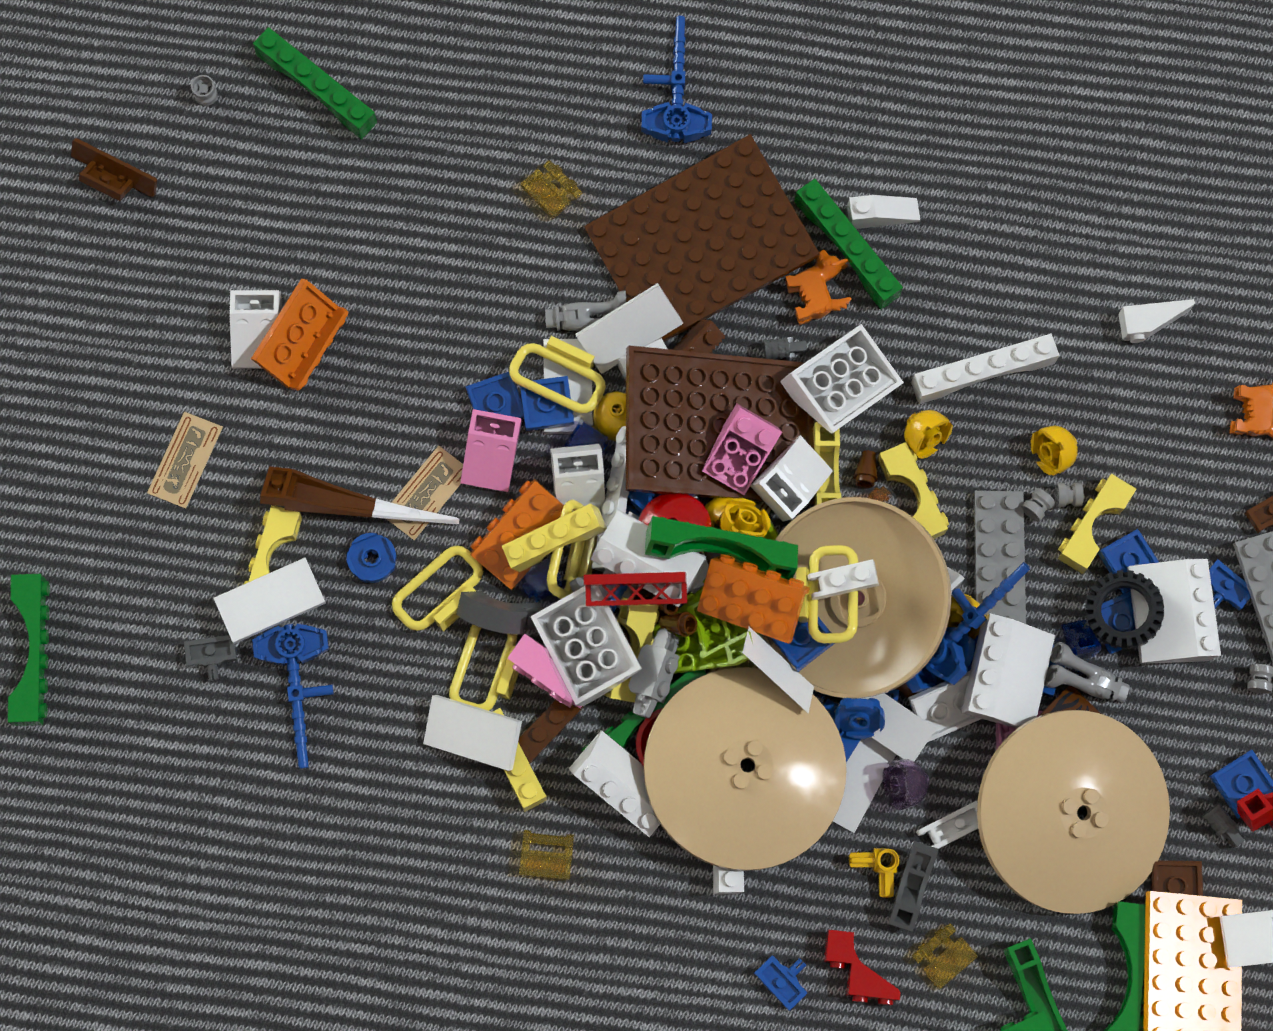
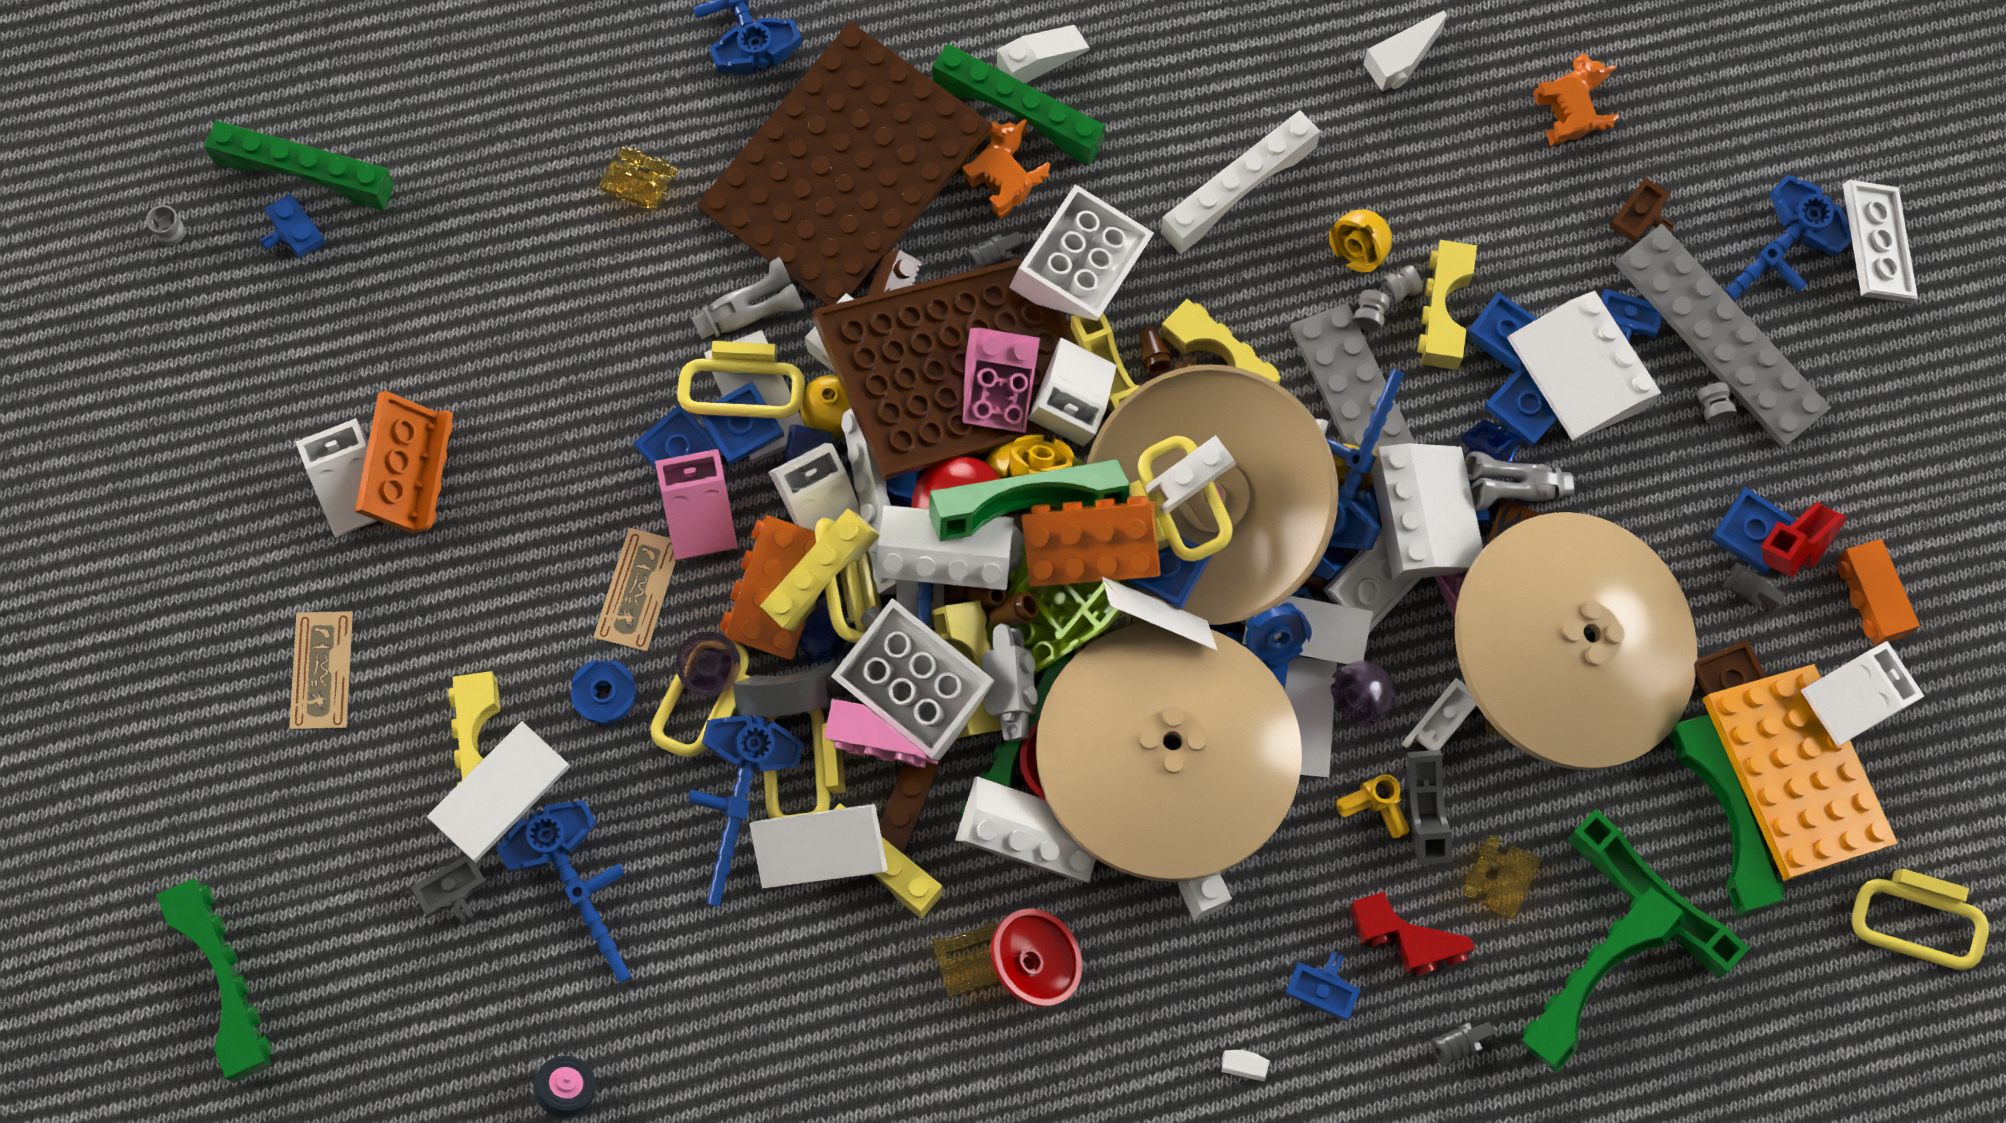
camera: 20 degrees left, 5 degrees down
(109, 173) = (88, 366): reddish brown bracket -> none
(232, 825) = (564, 1086): none -> black wheel
(291, 126) = (291, 227): none -> blue plate
(308, 494) = (493, 646): reddish brown plate -> none
(450, 570) = (707, 663): none -> cylinder
(457, 641) = (752, 746): none -> blue bar
(602, 874) = (1047, 950): none -> red dish
(633, 324) = (811, 280): white tile -> none
(635, 579) = (941, 574): red fence -> none
(704, 1010) = (1245, 1064): none -> white piece
(925, 431) = (1205, 277): yellow cylinder -> none
(1125, 580) = (1521, 349): black tyre -> none

